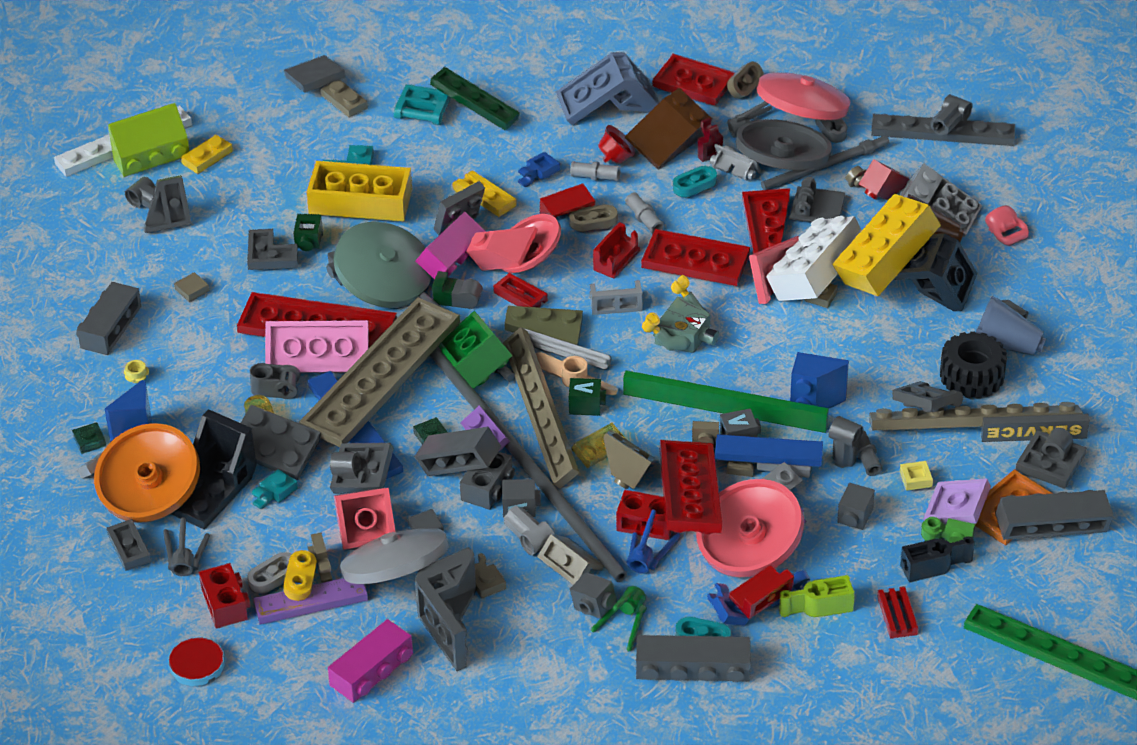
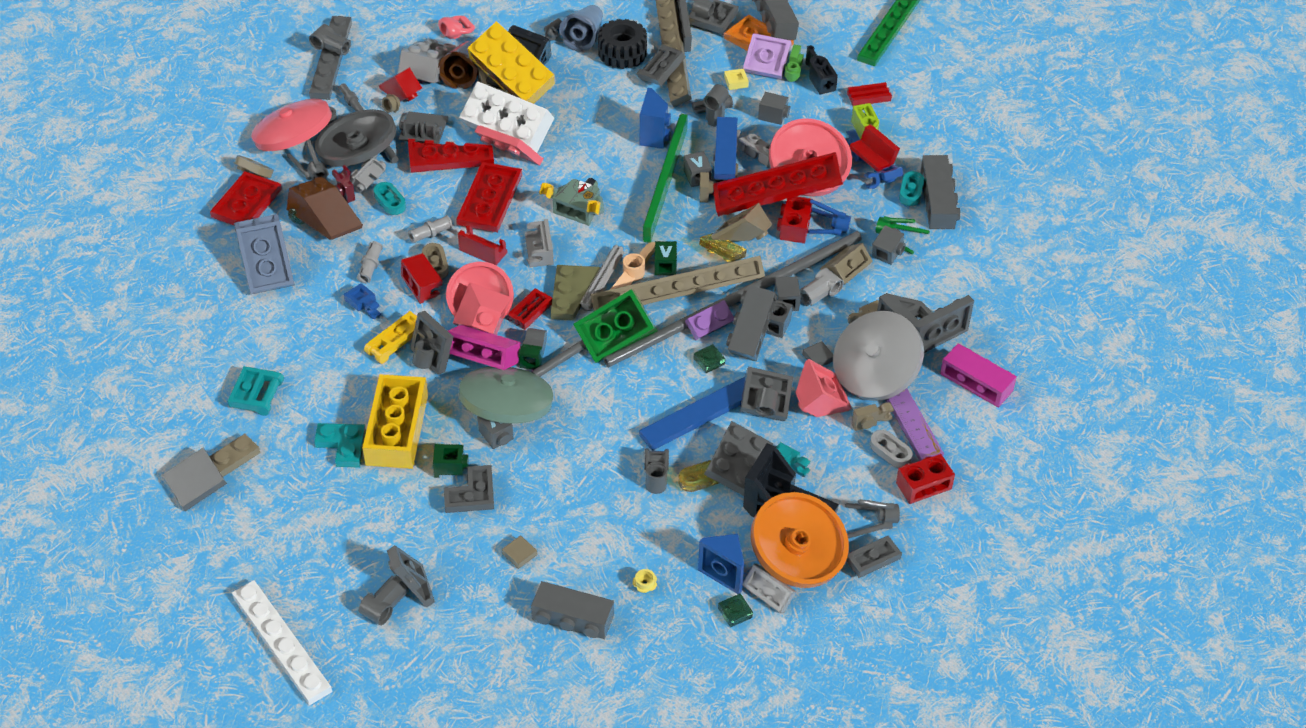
camera: 95 degrees left, 5 degrees up
(148, 139) = (305, 604): lime slope -> none
(196, 661) = (996, 494): red tile -> none
(206, 154) = (311, 563): yellow plate -> none
(269, 307) = (574, 447): red plate -> none
(301, 573) = (898, 424): yellow plate -> none
(316, 344) = (618, 435): bright pink plate -> none
(380, 371) = (649, 387): dark tan plate -> none
(474, 98) = (260, 345): dark green plate -> none
(615, 146) = (344, 248): red piece -> none

